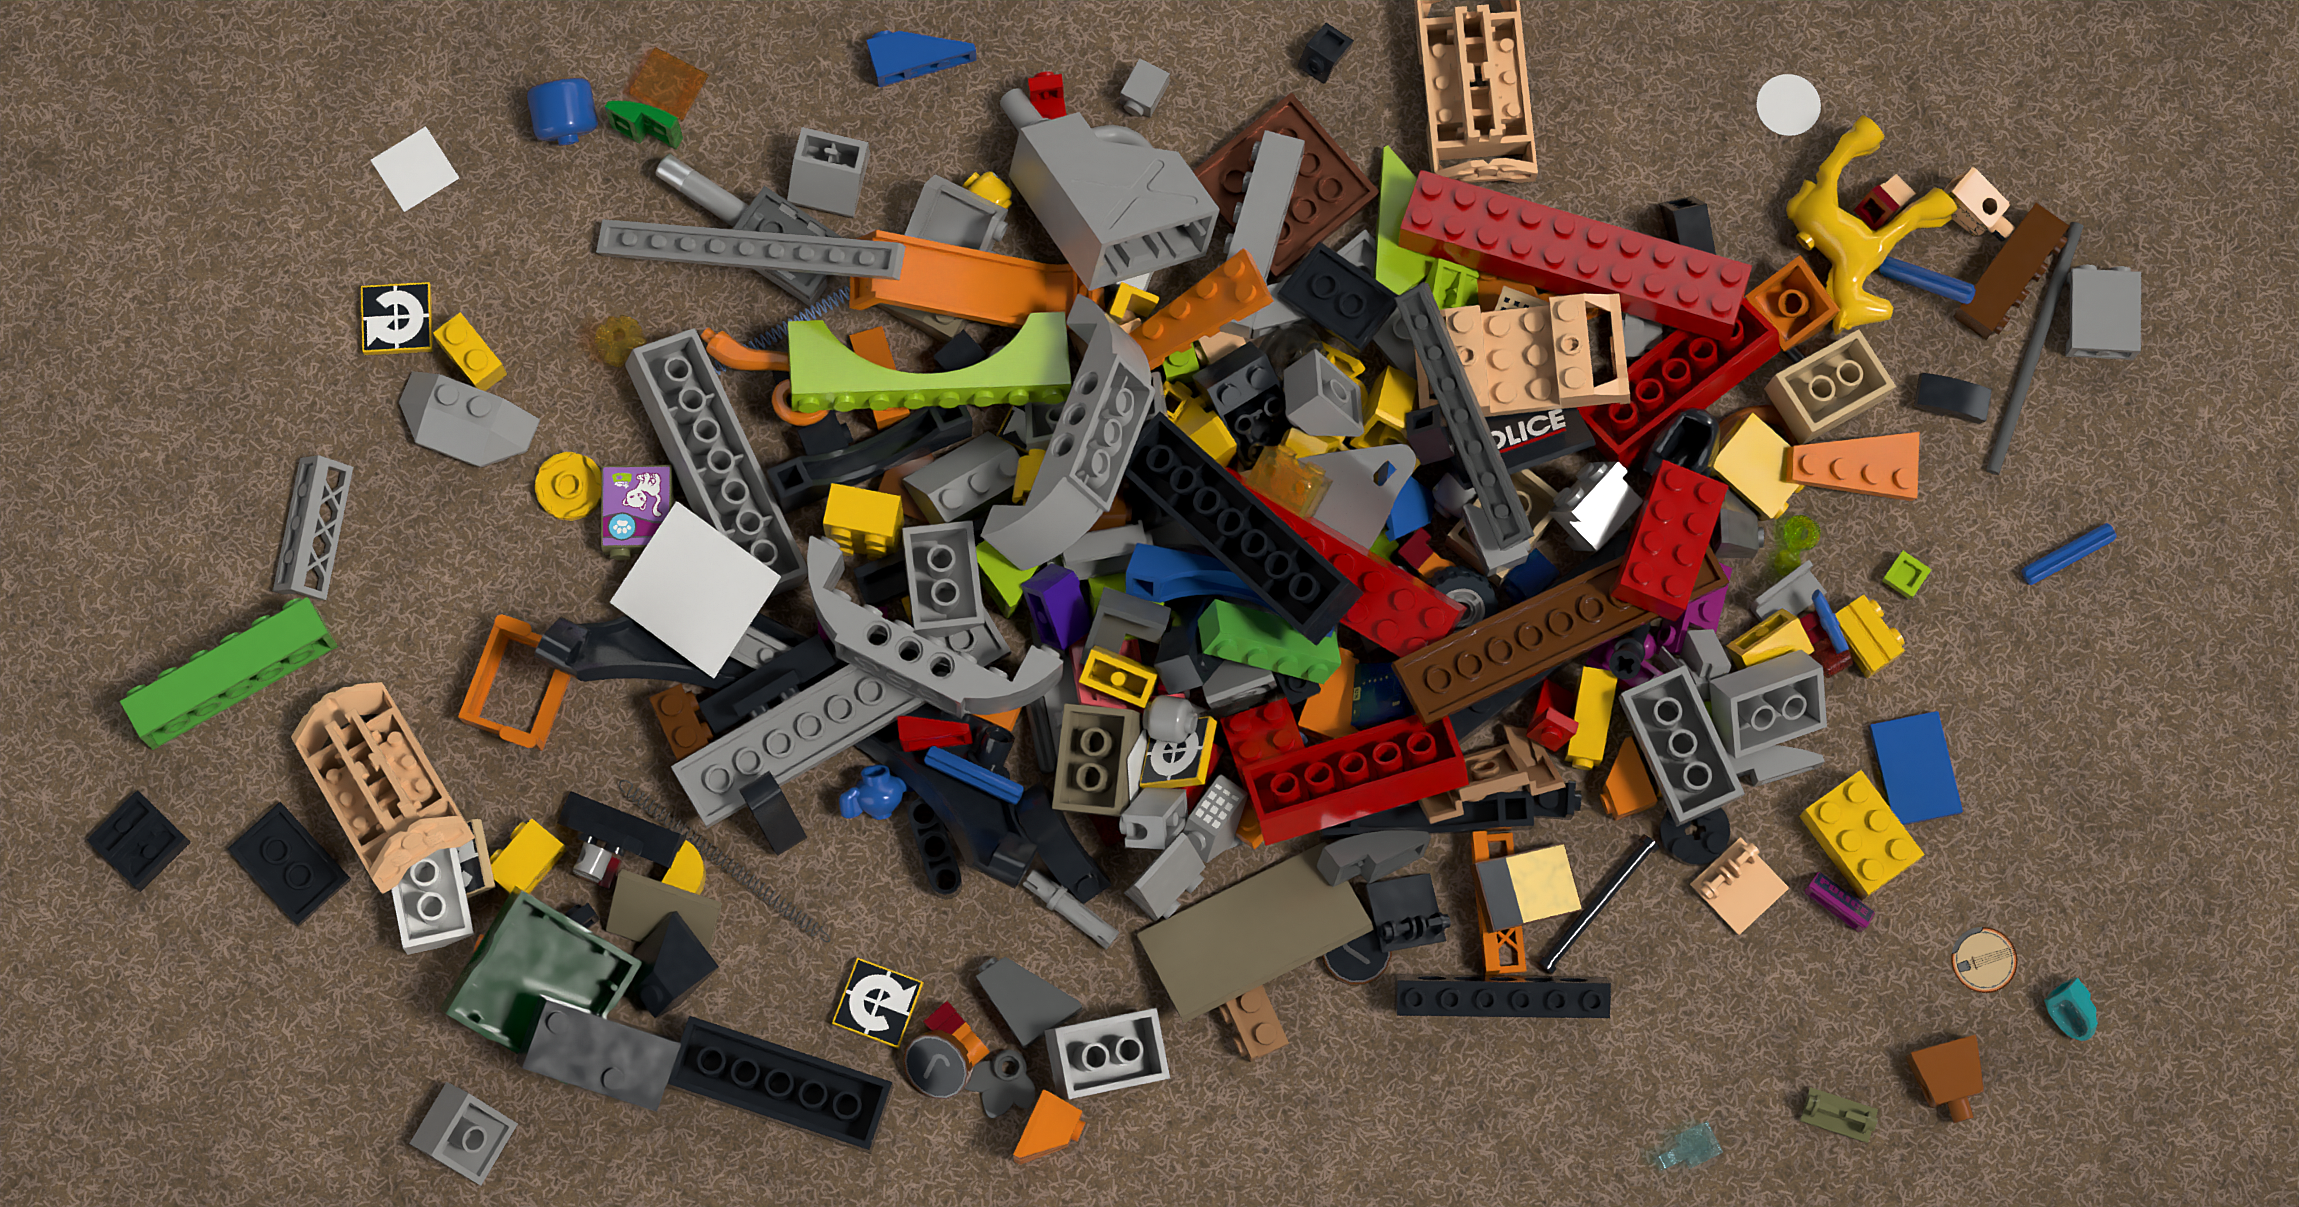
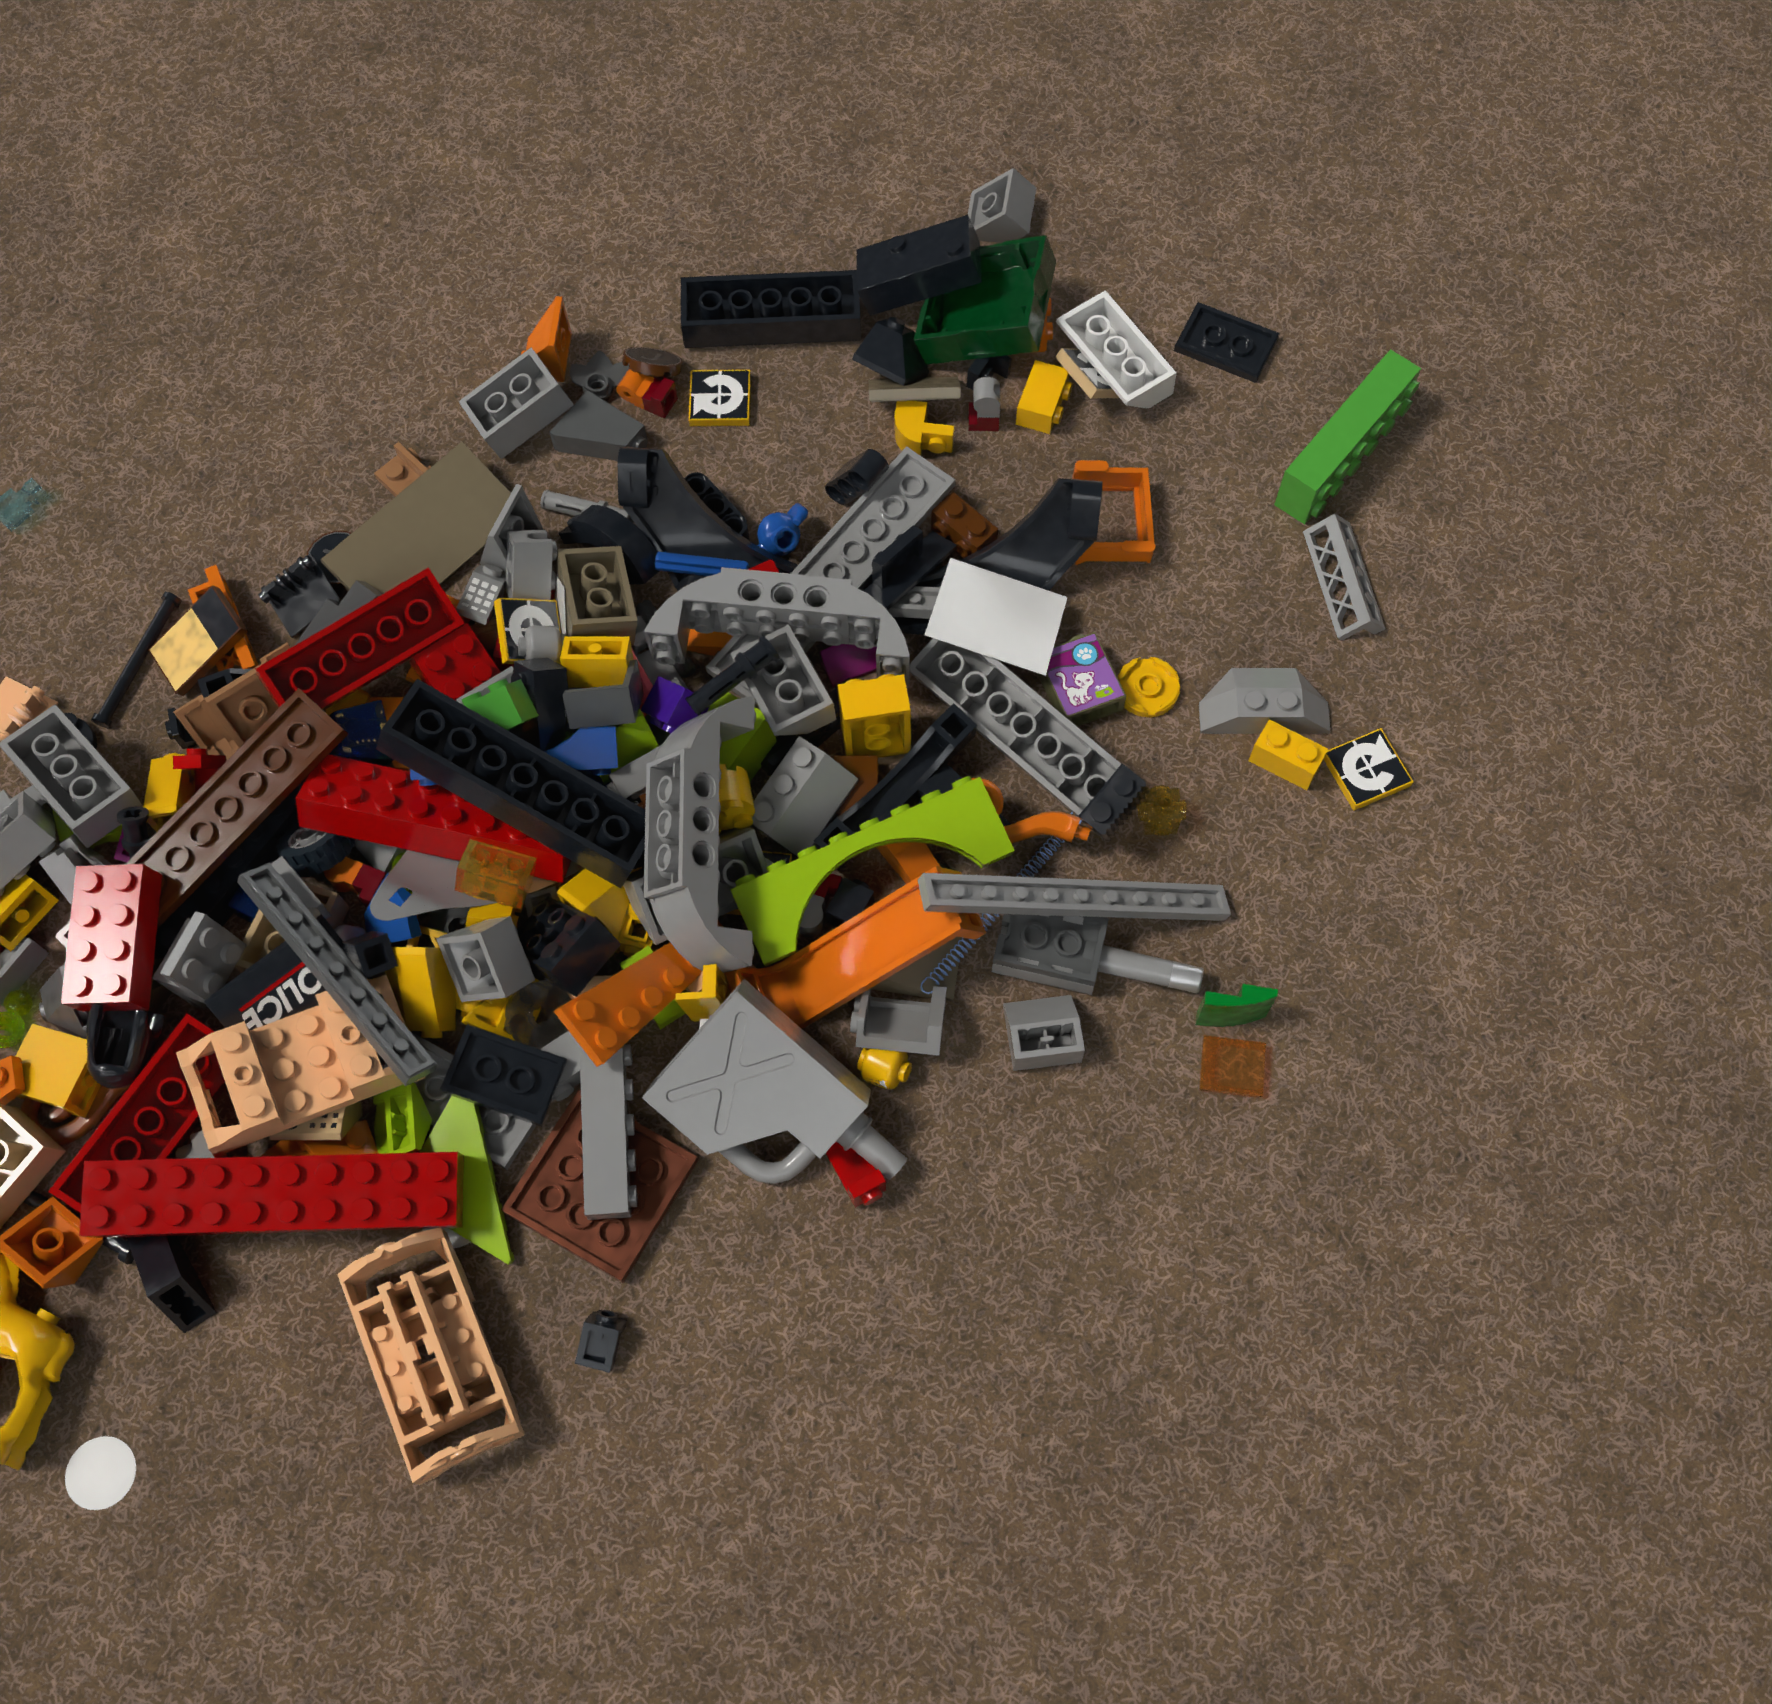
camera: 165 degrees right, 10 degrees down
(138, 840) = (1350, 318): black slope -> none
(397, 816) = (1180, 384): light nougat piece -> none
(415, 169) = (1423, 907): white sticker -> none
(562, 110) = (1318, 996): blue head -> none
(619, 830) = (980, 424): black bracket -> none
(672, 334) = (1114, 802): none -> black brick
(723, 861) = (939, 466): dark grey piece -> none
(911, 55) = (1013, 1178): blue slope -> none
(976, 590) = (745, 666): none -> black pin
(1144, 89) = (770, 1229): light grey brick -> none
(1502, 996) = (183, 558): black brick -> none
(1627, 784) = (128, 755): orange slope -> none

